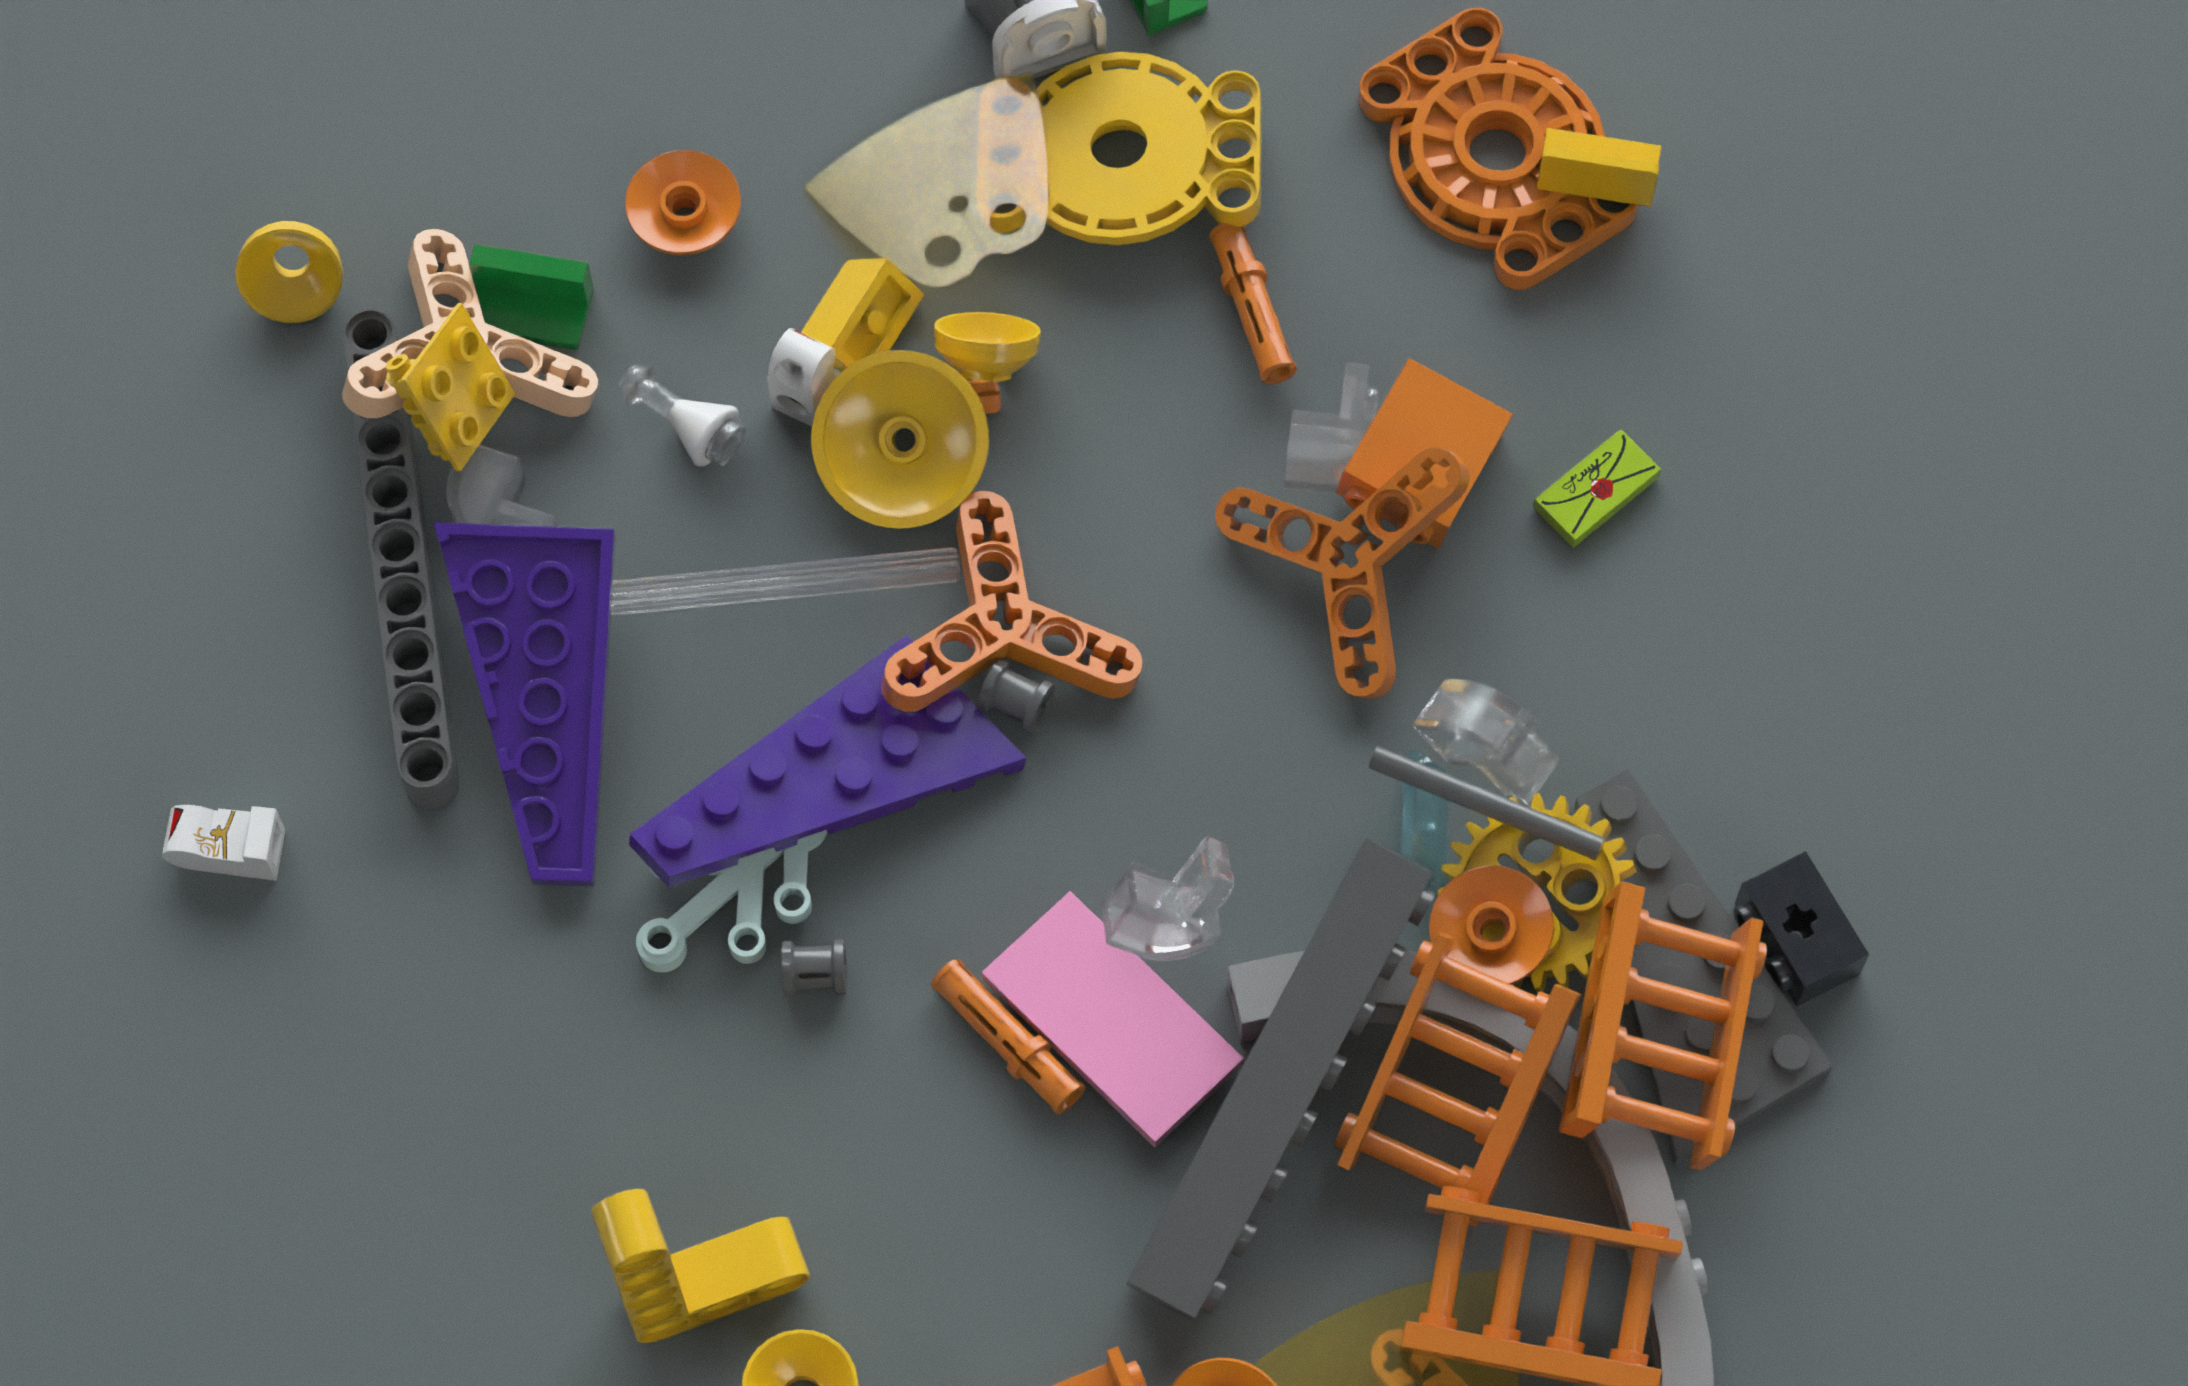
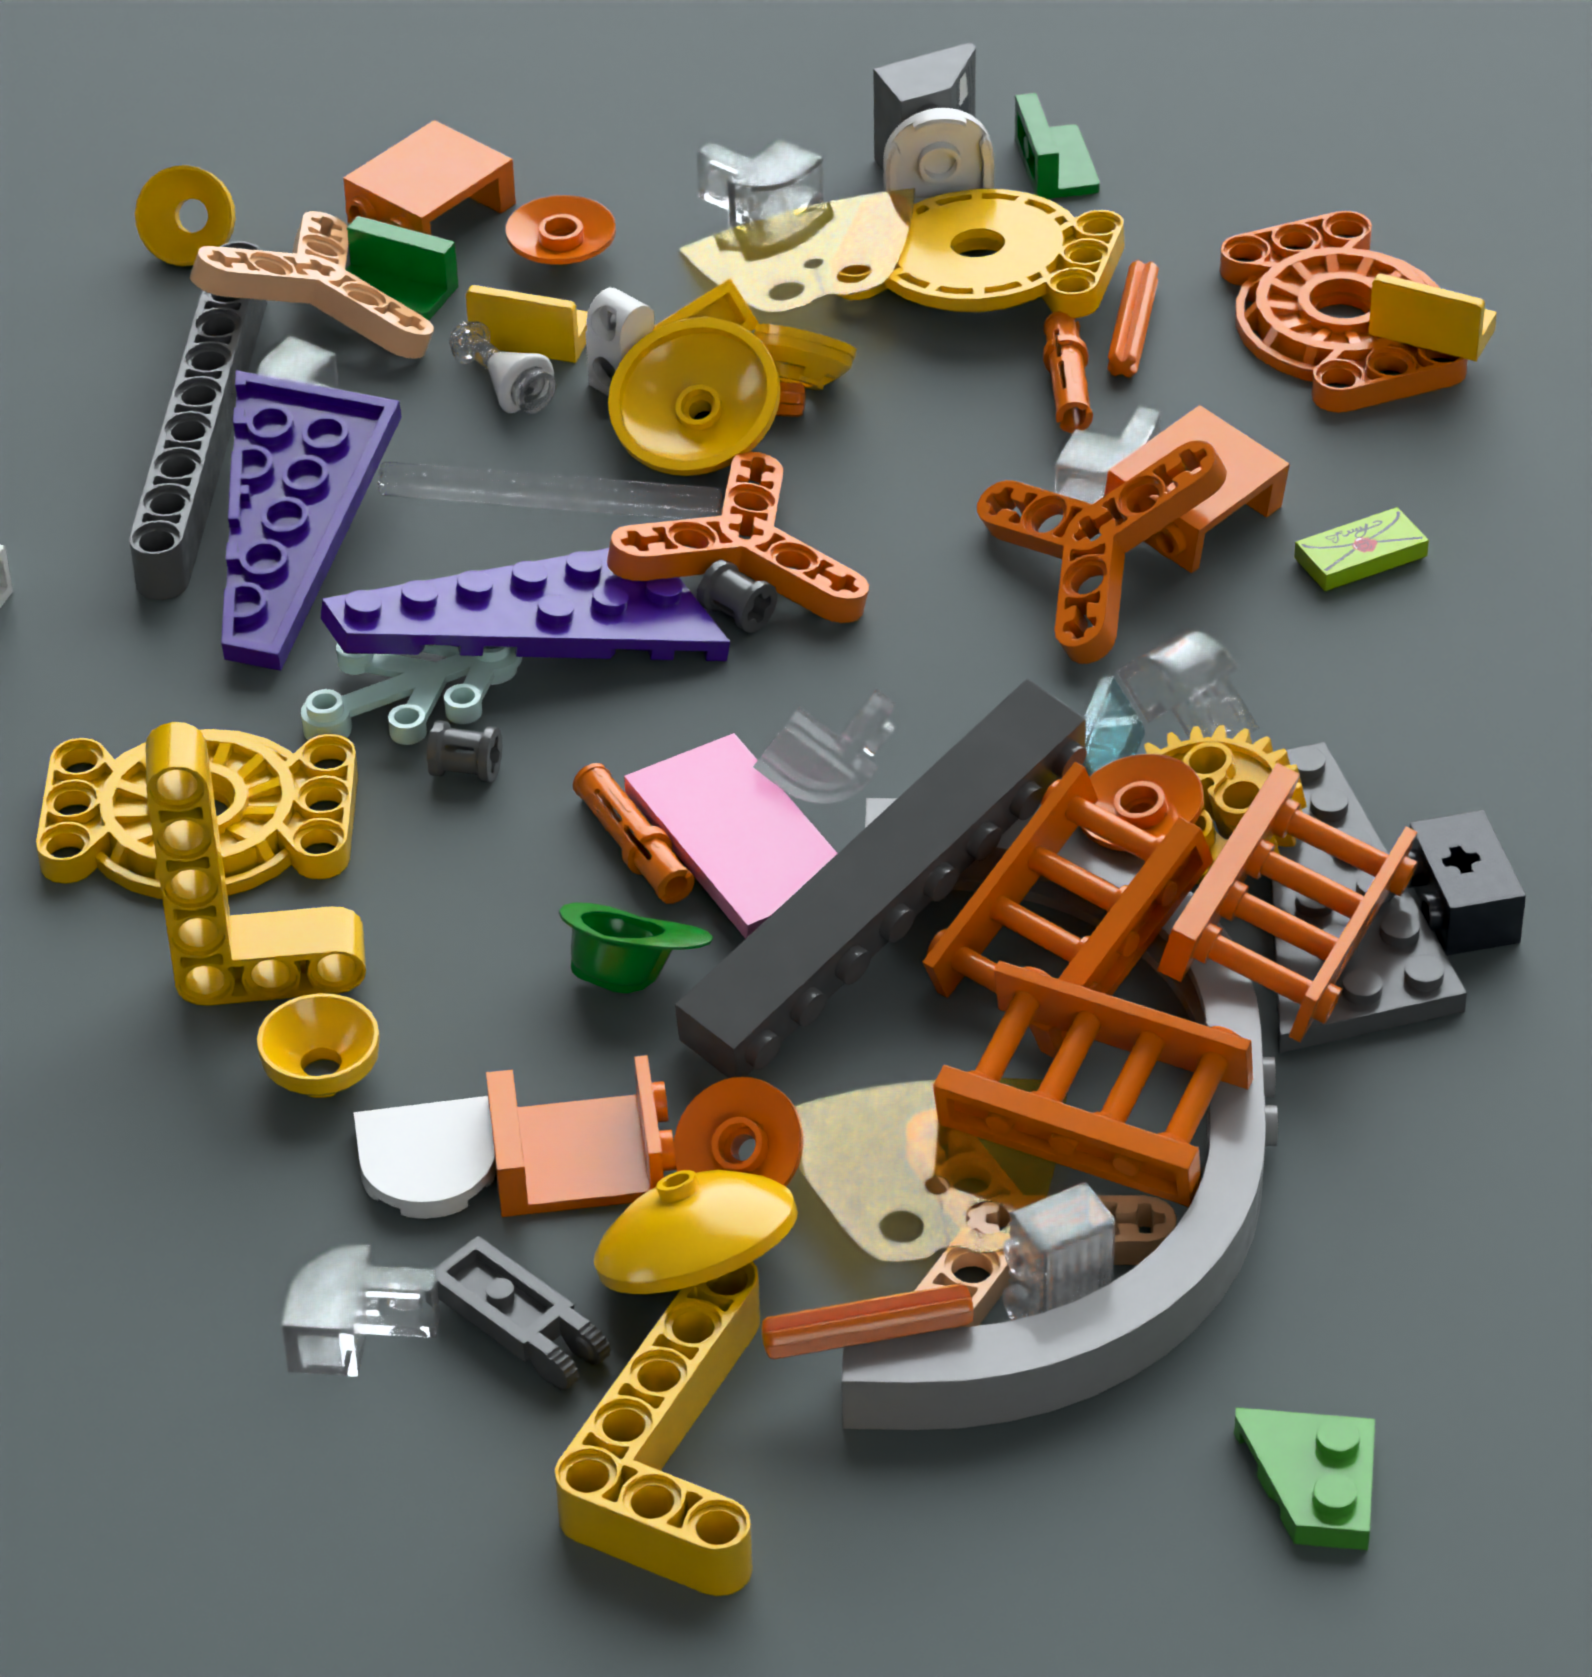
camera: 15 degrees right, 25 degrees down
(452, 388) = (293, 281): yellow hinge -> none
(512, 1089) = (259, 832): none -> yellow piece
(523, 167) = (427, 178): none -> panel
(692, 343) = (529, 322): none -> yellow panel
(877, 97) = (759, 188): none -> clear brick
(1055, 1191) = (622, 948): none -> green piece
(1295, 204) = (1133, 319): none -> orange axle
(1487, 803) = (1167, 716): dark grey bar -> none

